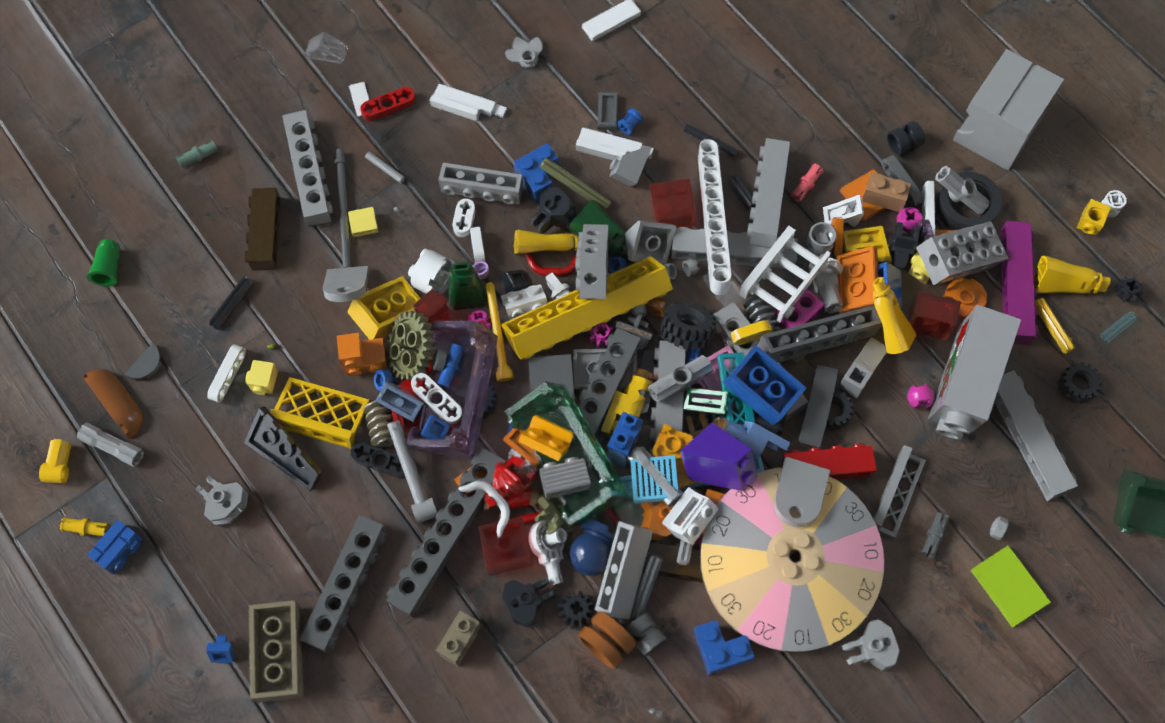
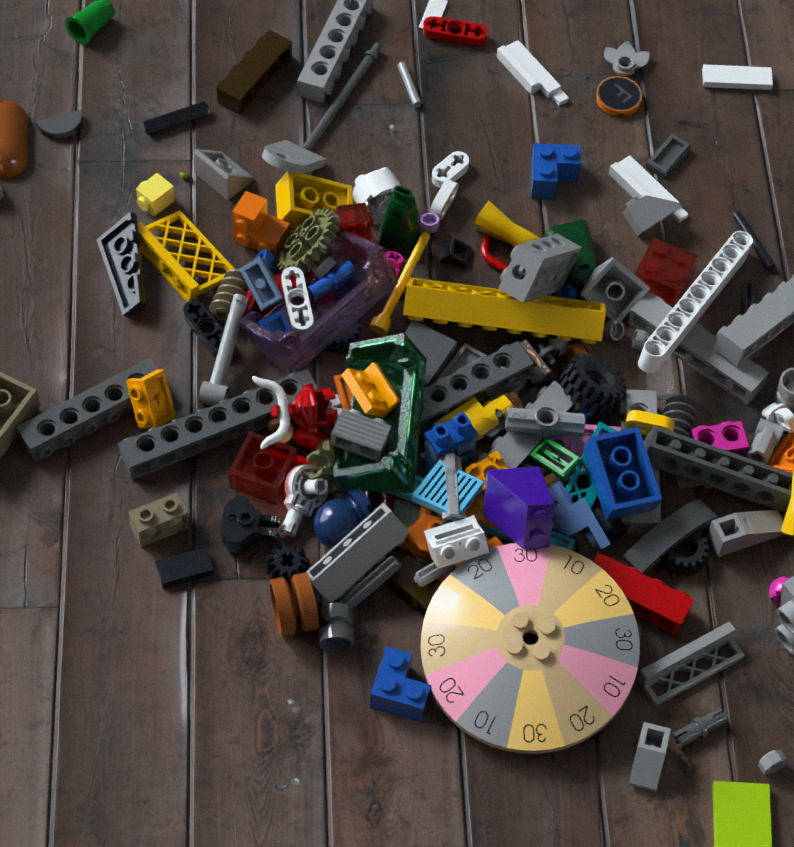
camera: 30 degrees right, 10 degrees down
(223, 501) = (39, 273): light grey hinge -> none
(226, 373) = (135, 167): white beam -> none
(298, 326) = (221, 172): none -> light grey slope
(363, 222) = (351, 118): light yellow piece -> none
(385, 548) = (151, 399): none -> light orange bracket
(481, 183) = (489, 146): light grey brick -> none
(502, 661) = (184, 567): none -> black tile
(523, 301) = (441, 269): white bracket -> none
(540, 84) = (618, 96): none -> black tile
(554, 209) = (540, 209): black hinge -> none
(558, 289) = (491, 279): white piece -> none
(574, 183) = (580, 197): olive axle -> none
(598, 338) = (500, 339): dark pink gear -> none
(630, 121) = (682, 176): blue bush -> none
(775, 255) = (725, 370): white fence -> none
(800, 489) = (582, 582): light grey tile -> none
(873, 648) = (555, 782): light grey hinge -> none
(922, 581) = (649, 756): none -> light grey slope

